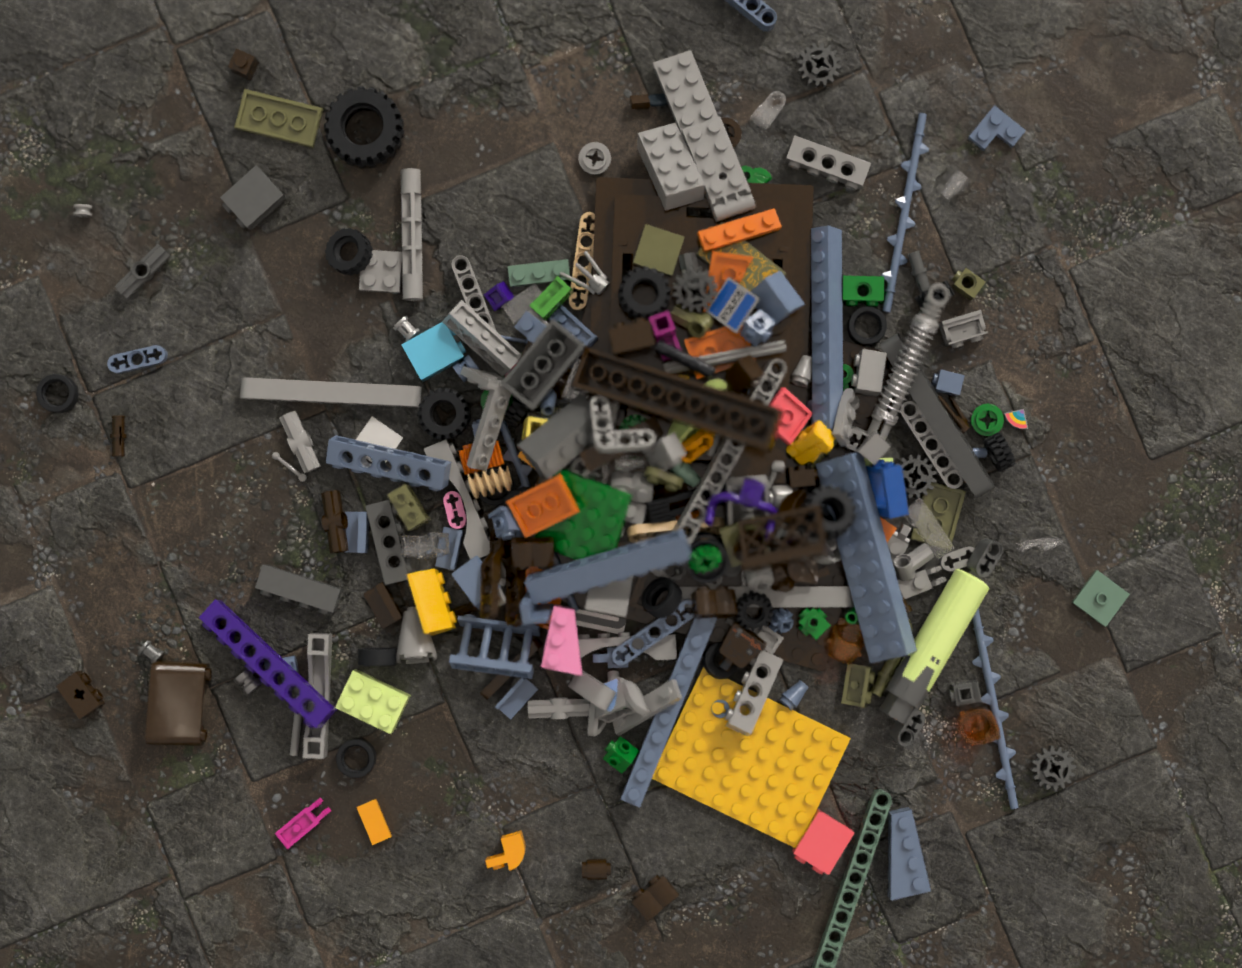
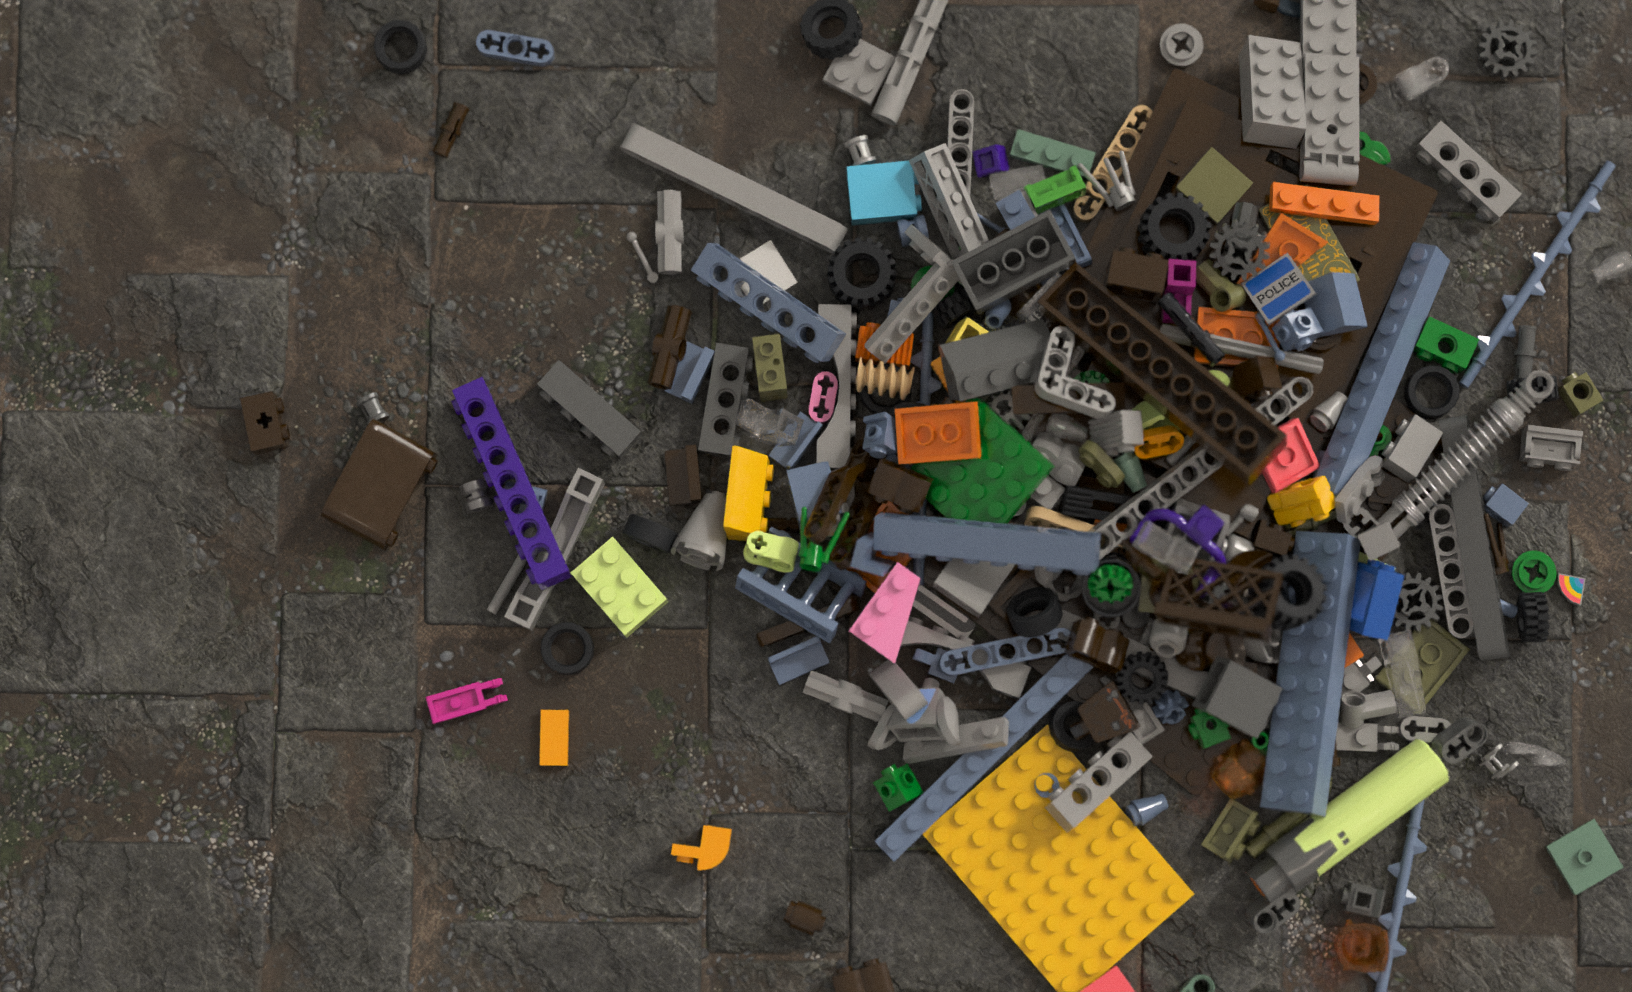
camera: 20 degrees right, 5 degrees down
(467, 634) = (774, 551): none -> yellowish green piece
(494, 627) = (811, 554): none -> green plant
(719, 535) = (1141, 563): none -> dark brown pin
(731, 519) = (1165, 548): none -> clear slope
(753, 351) = (1279, 355): none -> sand blue hinge
(823, 597) = (1237, 696): none -> dark grey brick
(1022, 564) = (1503, 769): none -> light grey piece

